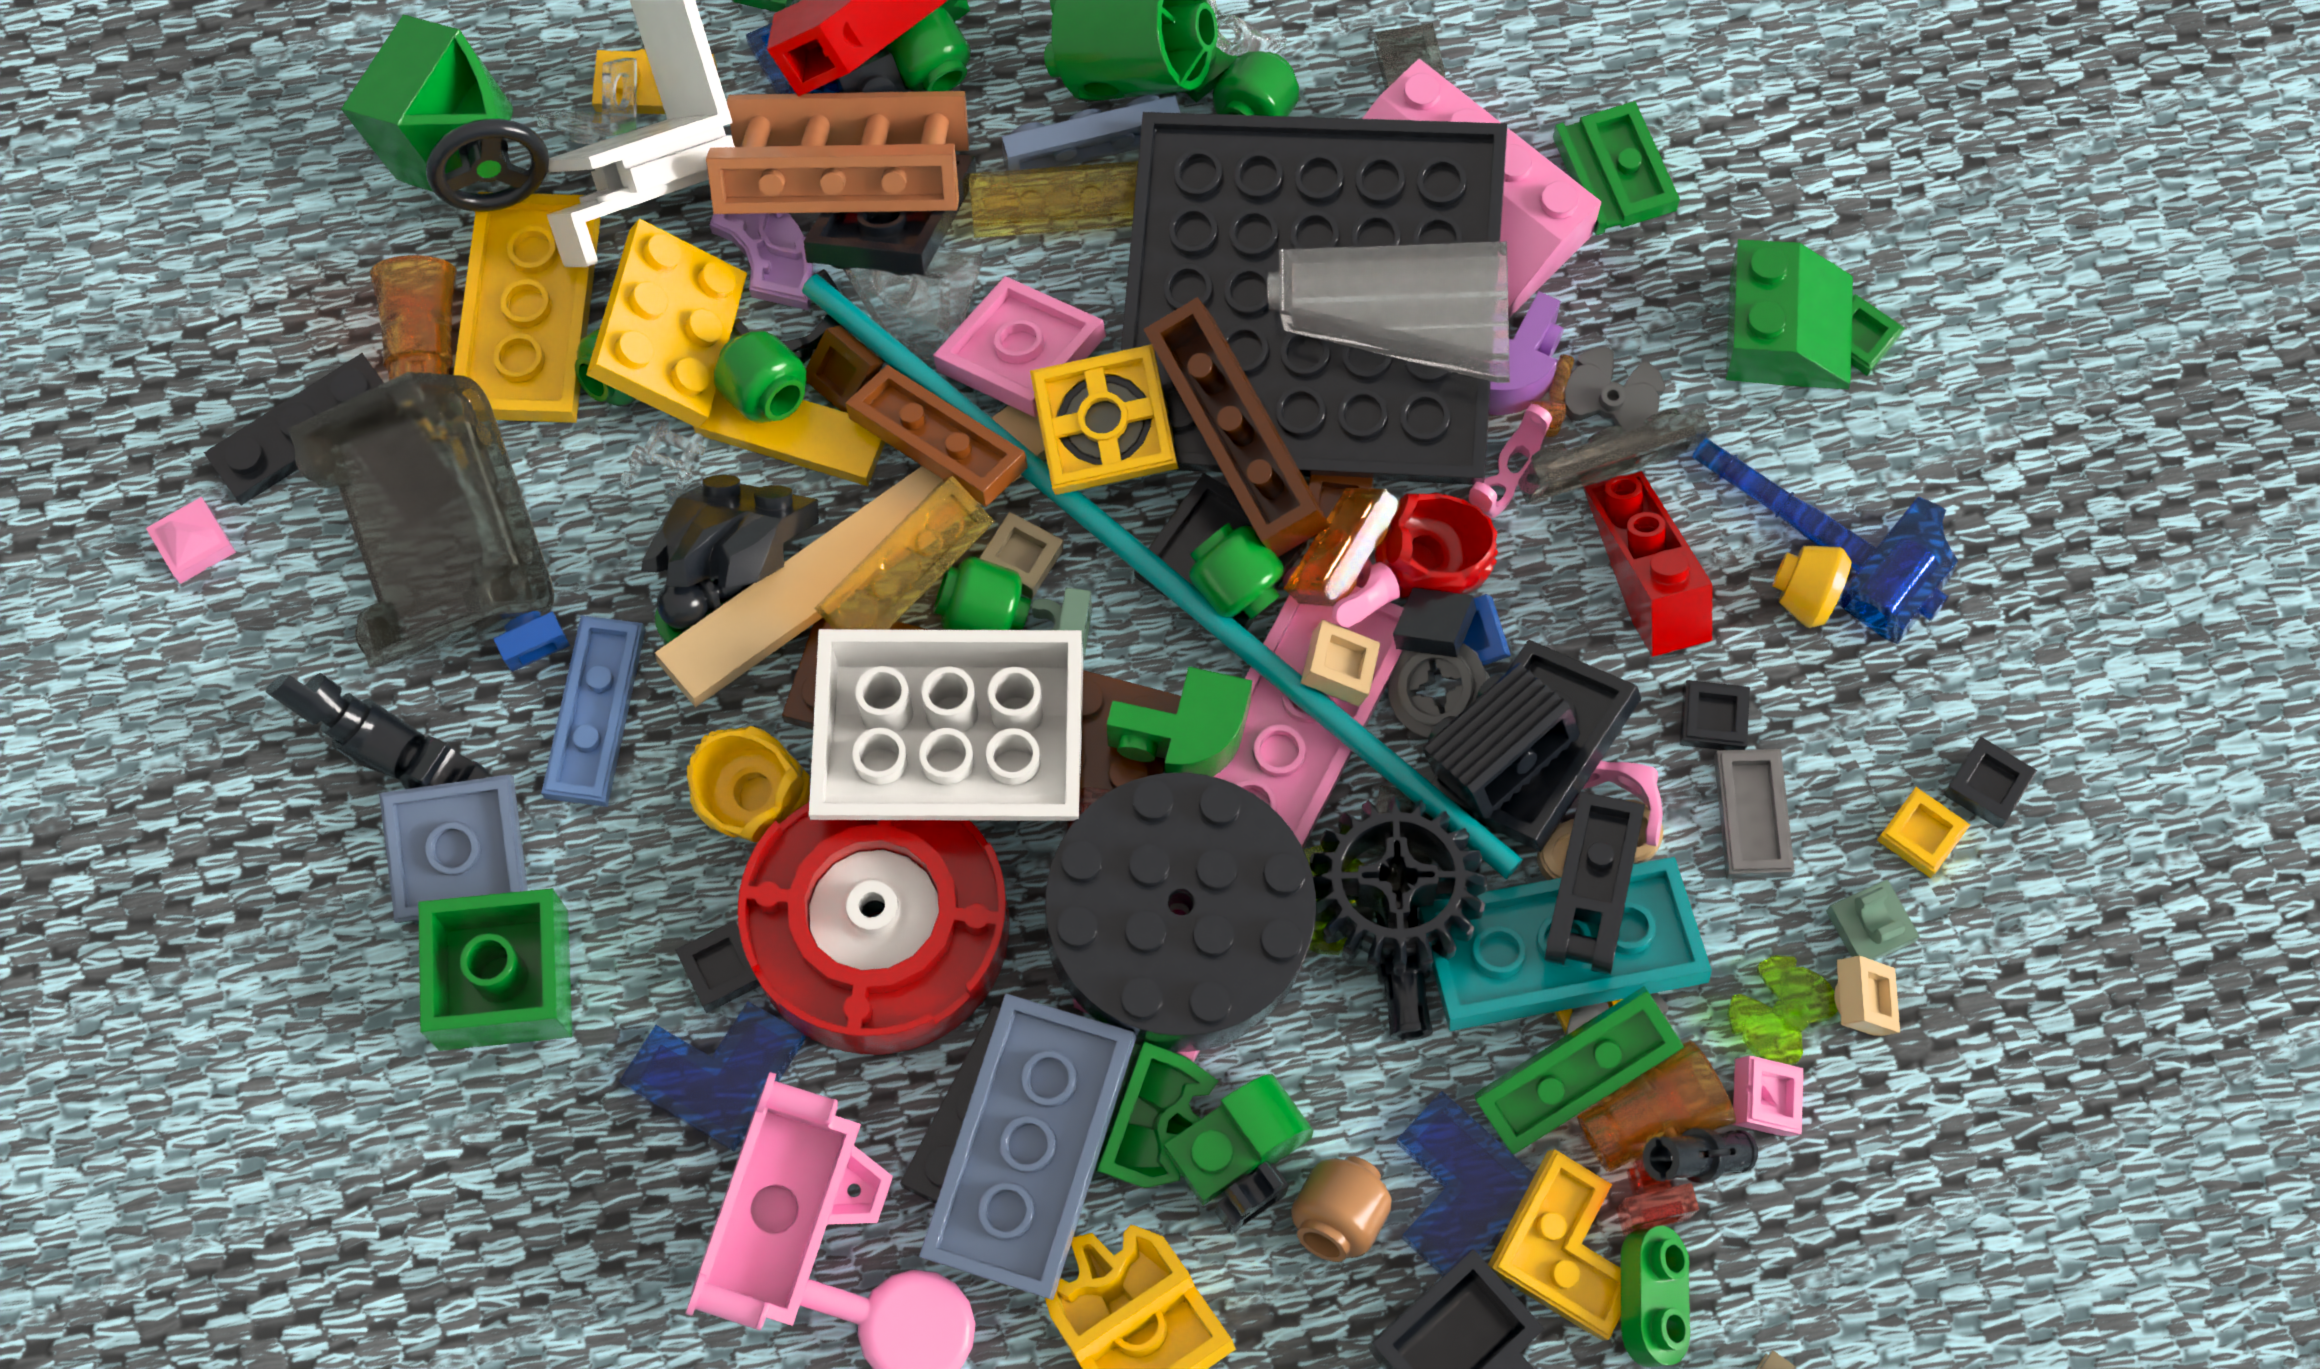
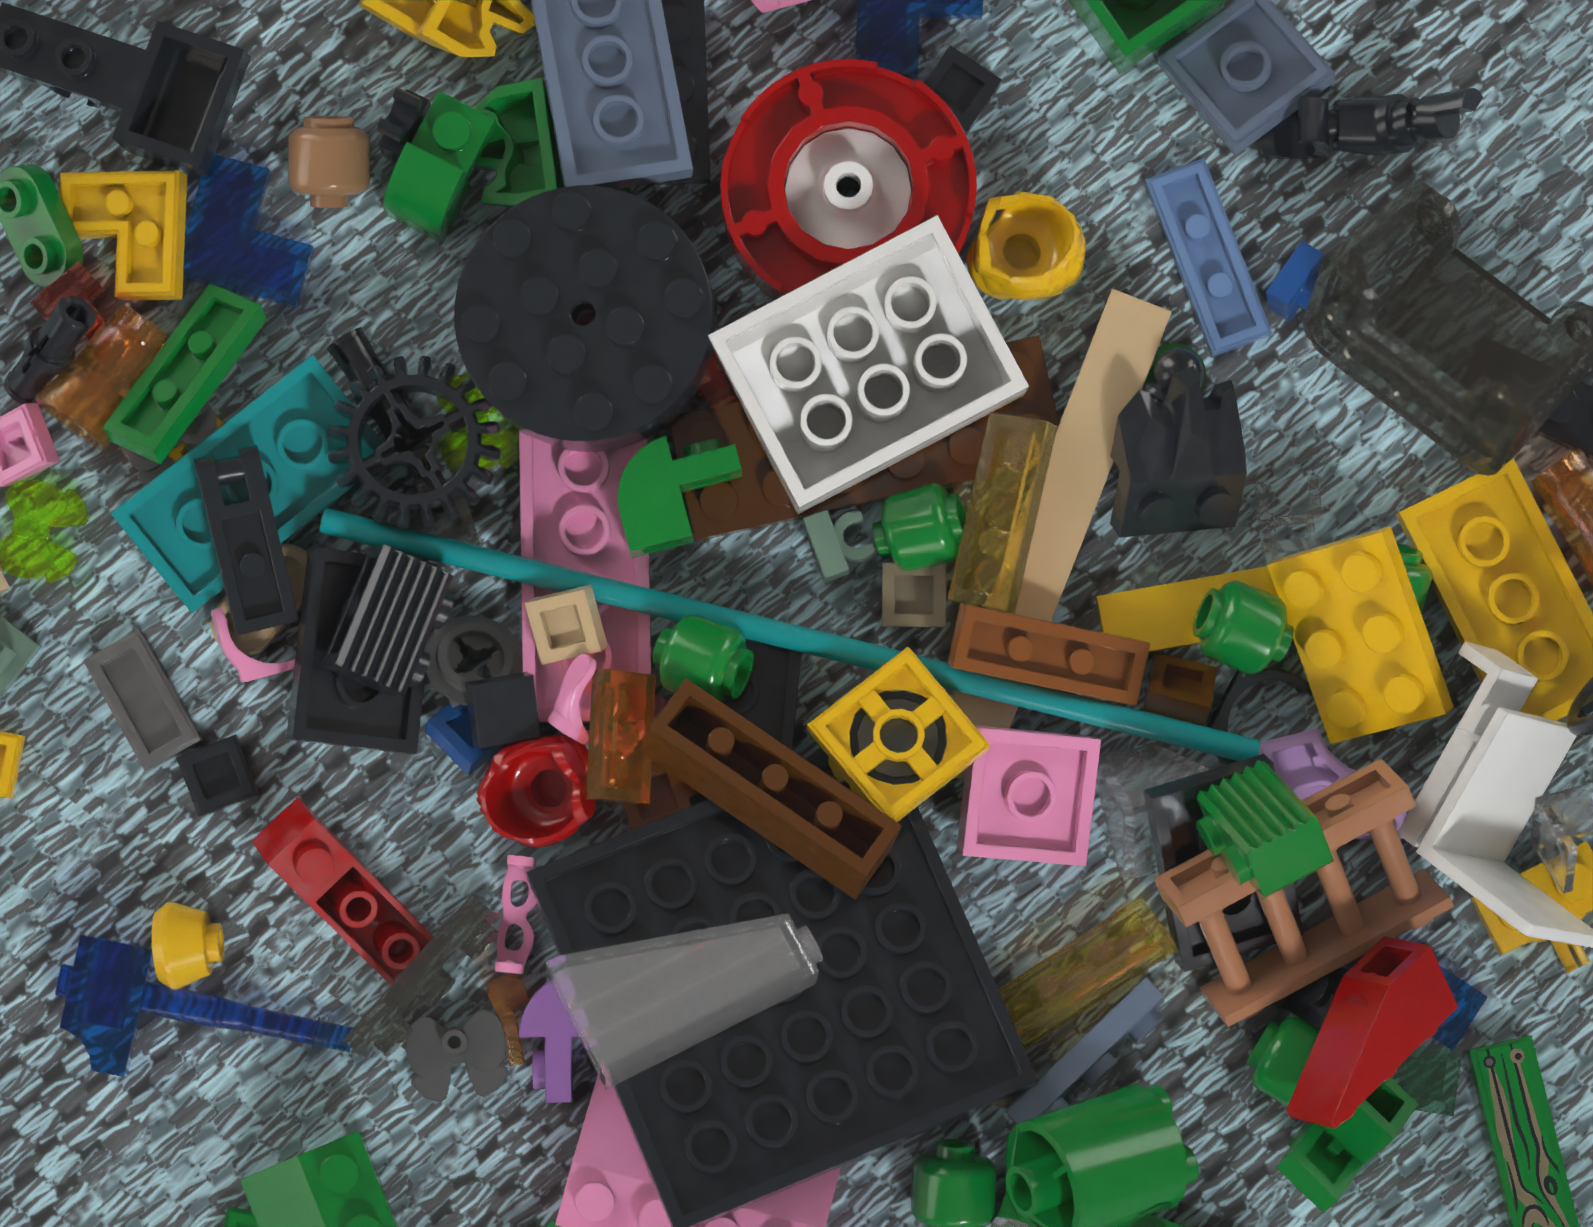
camera: 150 degrees right, 15 degrees up
(845, 174) = (1262, 830): none -> green brick

